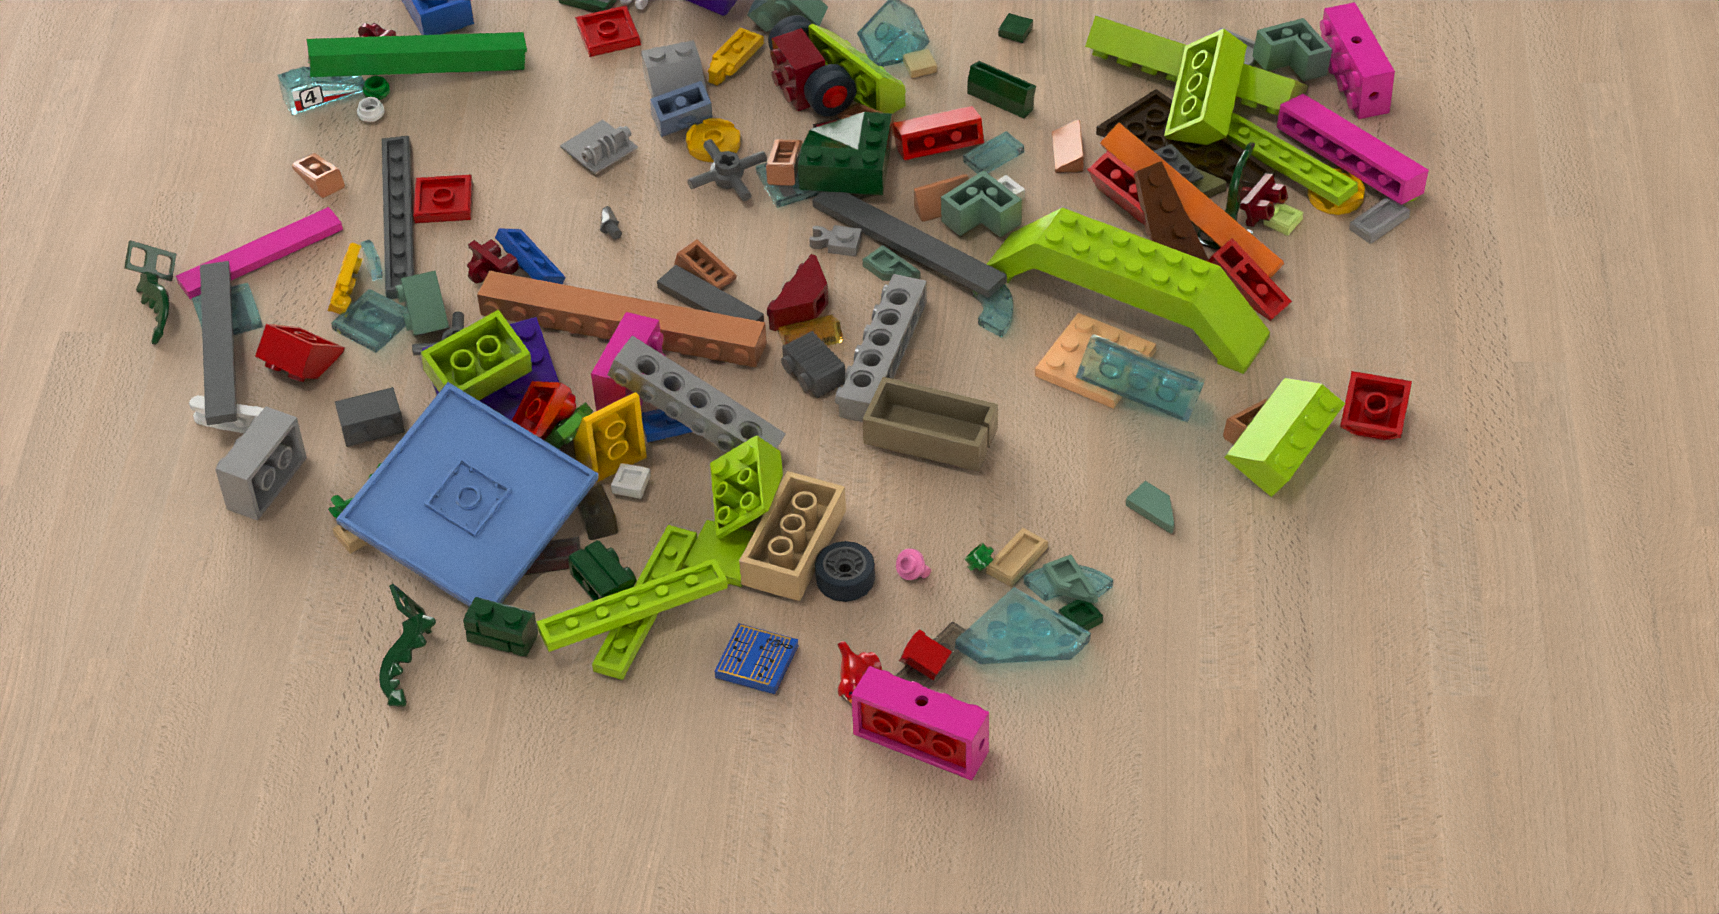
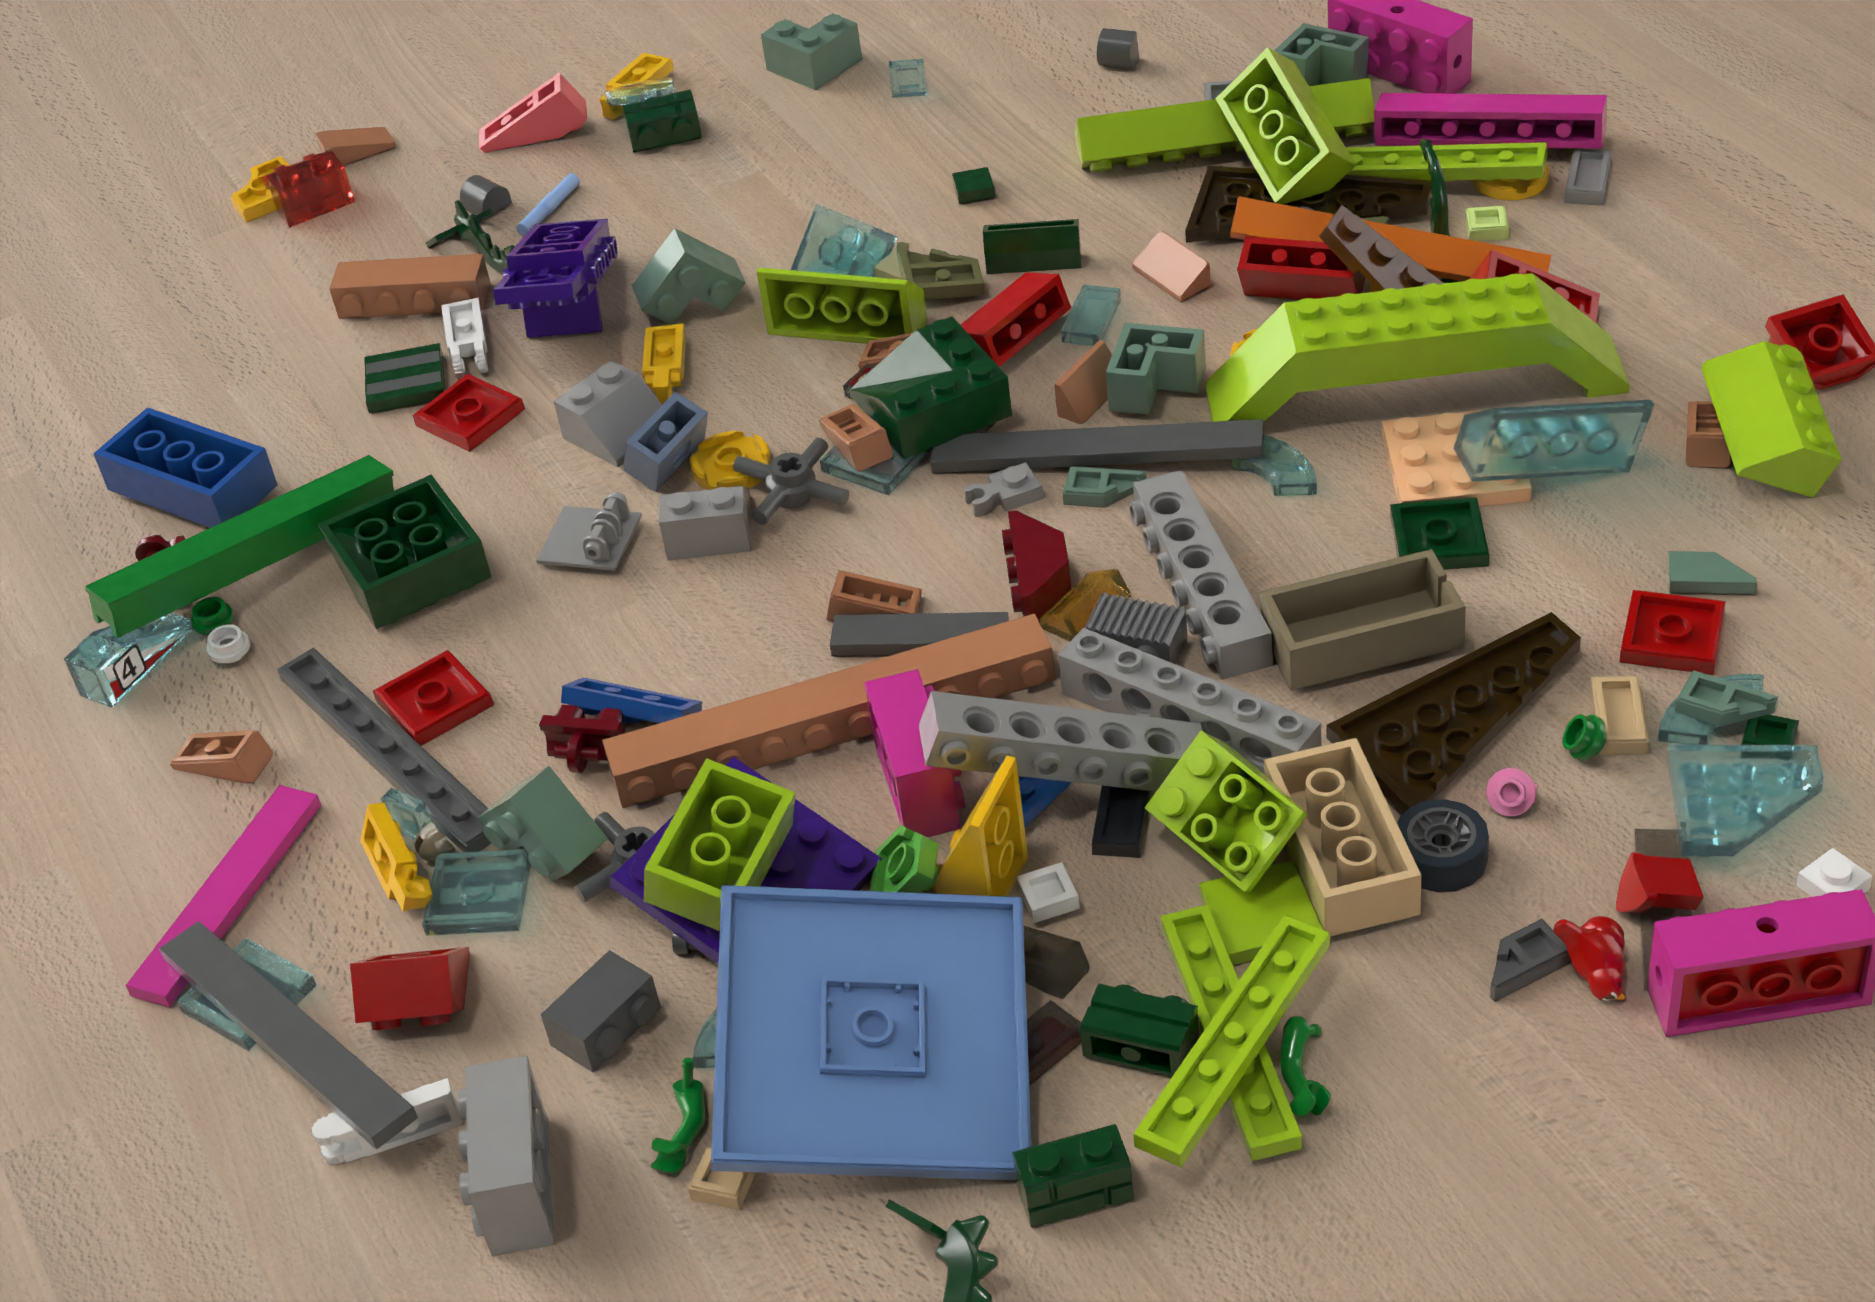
camera: 30 degrees left, 5 degrees down
(148, 283) = (106, 1022): dark green piece -> none
(373, 280) = (431, 842): none -> dark tan hinge
(493, 102) = (405, 551): none -> dark green slope
(544, 406) = (863, 851): red slope -> none
(609, 223) = (694, 614): dark grey bar -> none
(650, 652) = (1307, 1094): none -> green piece
(661, 170) = (705, 522): none -> light grey slope
(697, 468) = (1120, 822): none -> black tile
(756, 658) = (1446, 1016): blue tile -> none
(793, 416) = (1140, 684): none -> light grey brick
(803, 72) = (784, 329): brick -> none
(822, 654) = (1527, 958): none -> dark grey tile
(914, 504) = (1443, 720): none -> dark brown wing
(931, 79) = (941, 273): none -> olive wing
(1023, 708) = (1833, 874): none -> white plate
(1038, 399) = (1446, 526): none -> dark green tile
(1098, 528) = (1672, 632): none -> red tile
(1260, 200) = (1461, 212): dark red hips -> none

